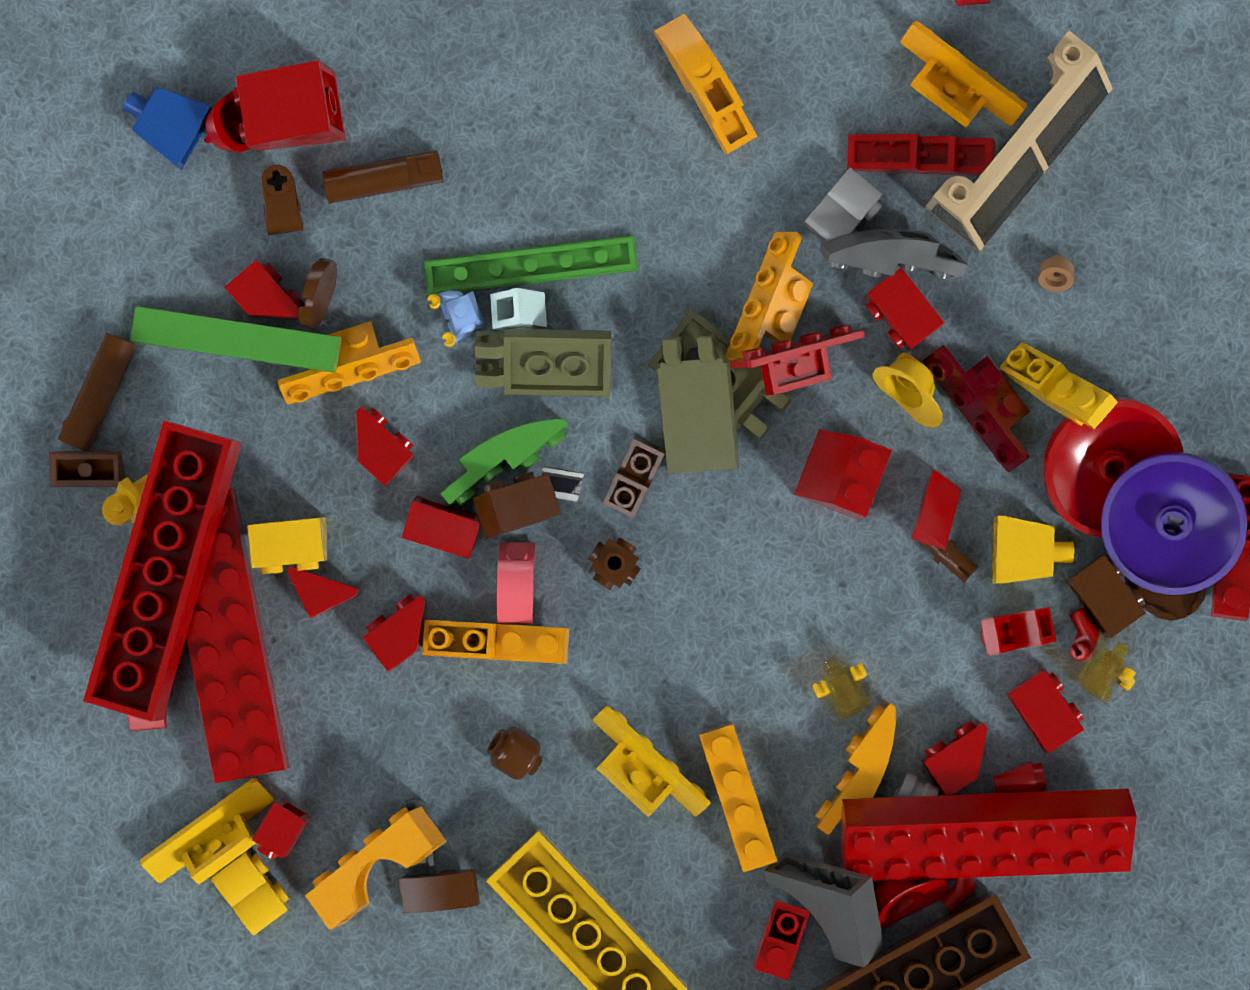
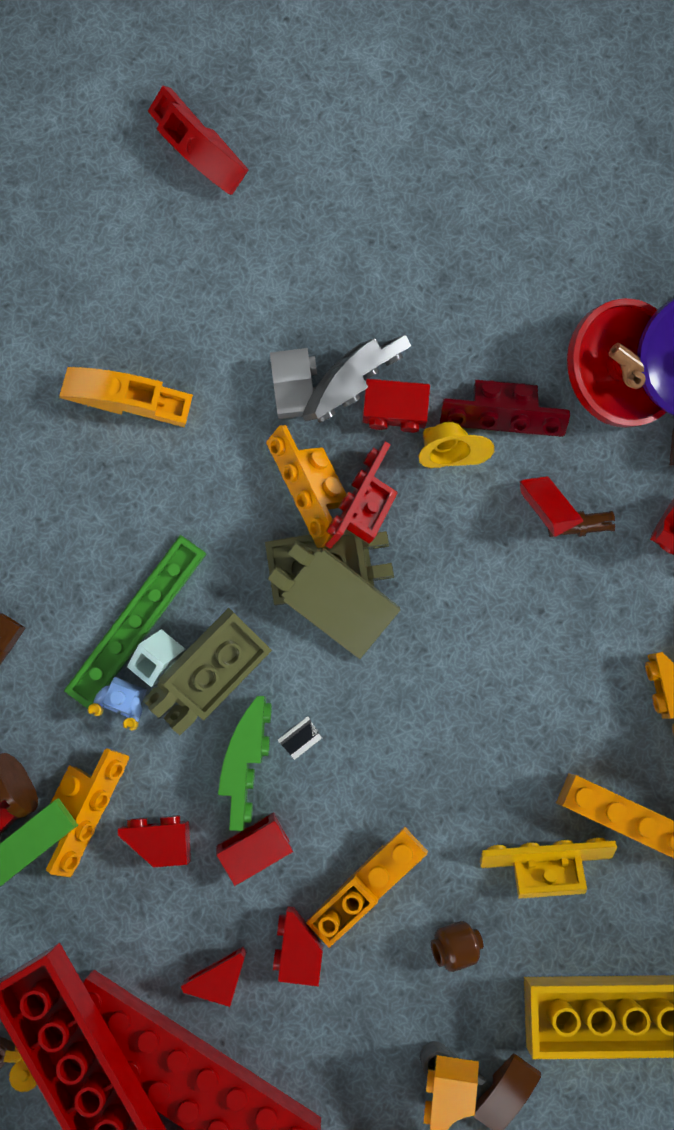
camera: 40 degrees left, 5 degrees down
(288, 543) = (162, 974): yellow slope -> none
(515, 583) = (339, 834): coral brick -> none
(516, 505) = (286, 784): reddish brown piece -> none
(624, 574) = (385, 739): reddish brown brick -> none
(634, 476) = (341, 684): reddish brown slope -> none
(843, 473) = (470, 540): red slope -> none
(843, 689) = (614, 676): clear yellow piece -> none
(919, 154) = (304, 303): red slope -> none
(956, 82) = (279, 237): light orange bracket -> none
(981, 207) = (370, 296): windscreen -> none
(1026, 550) = (629, 471): yellow torso -> none
(1056, 274) = (463, 287): medium nougat tile -> none
(1057, 386) = (544, 348): yellow slope -> none
(1110, 472) = (630, 365): none -> medium nougat arm

